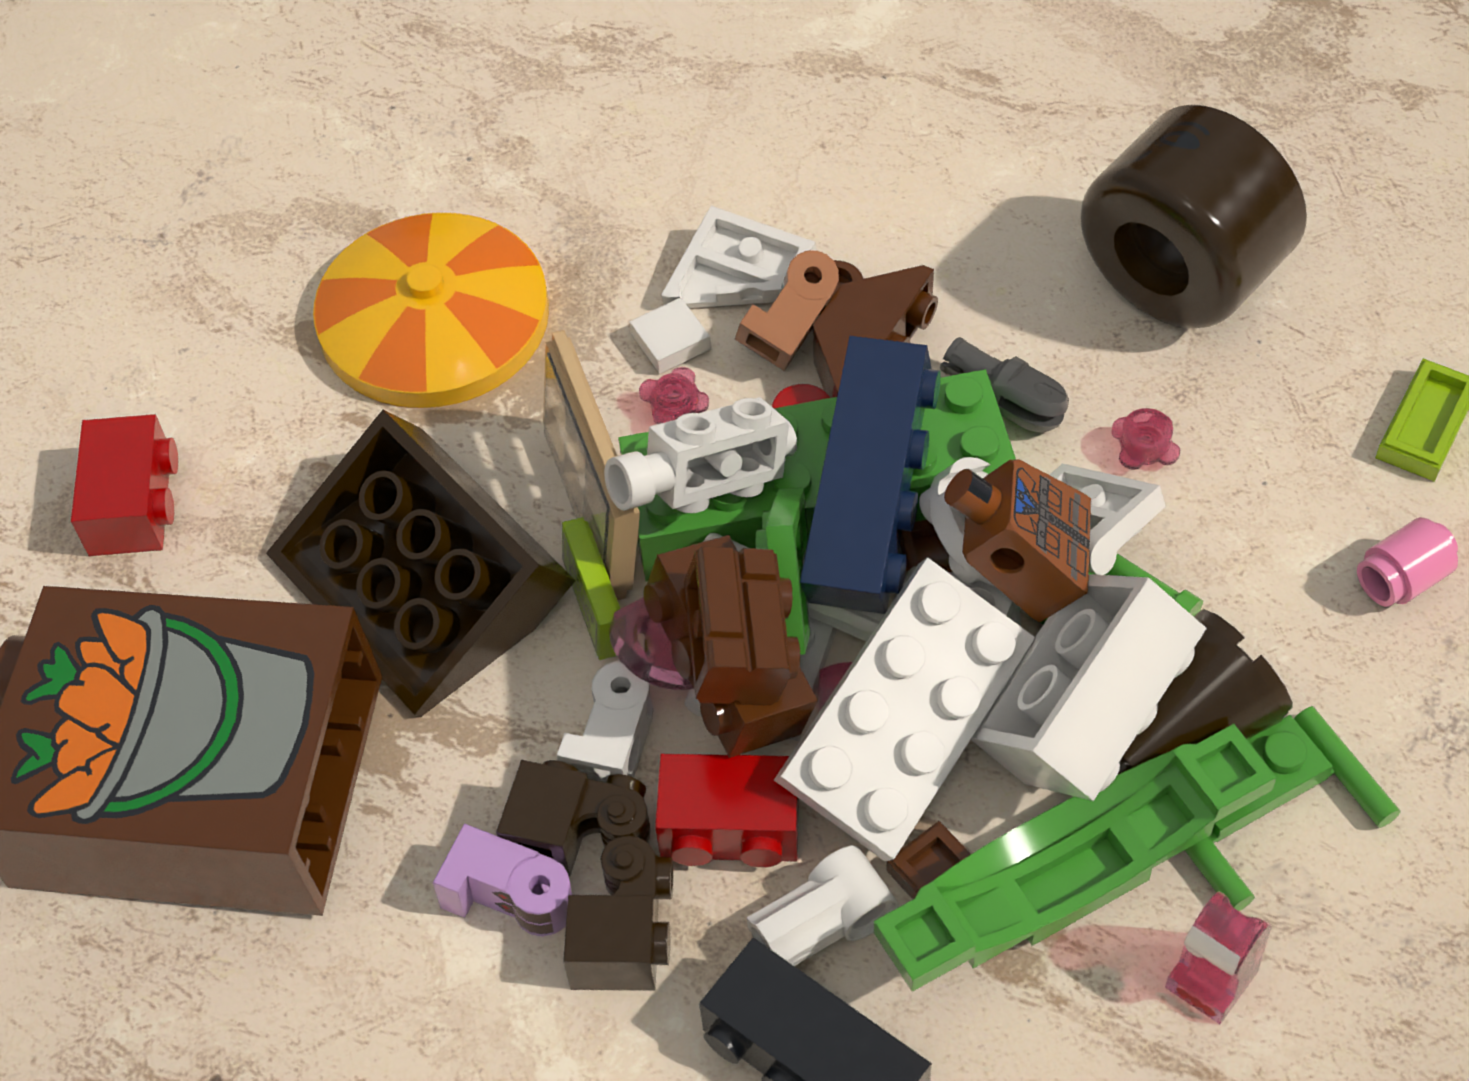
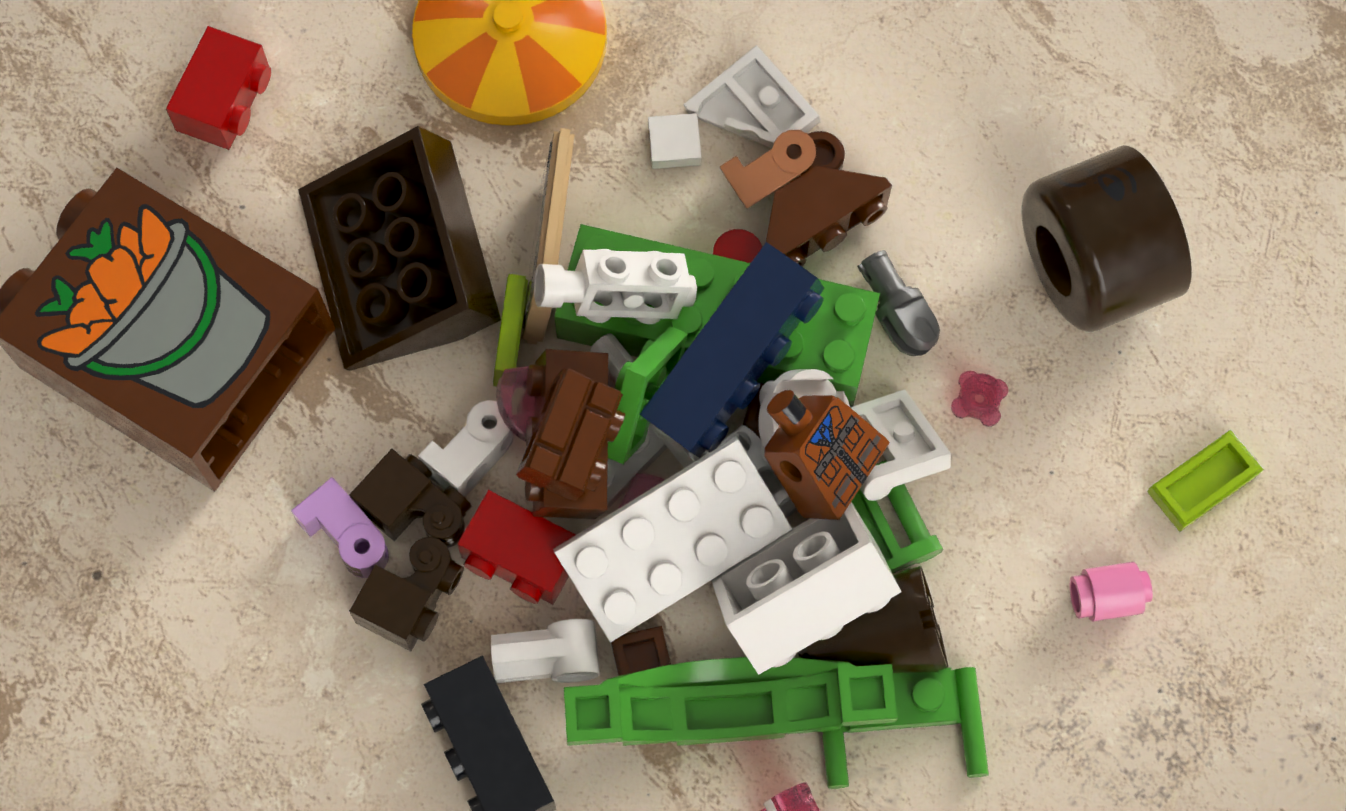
camera: 20 degrees right, 15 degrees up
(679, 383) = (644, 210): clear pink plate -> none

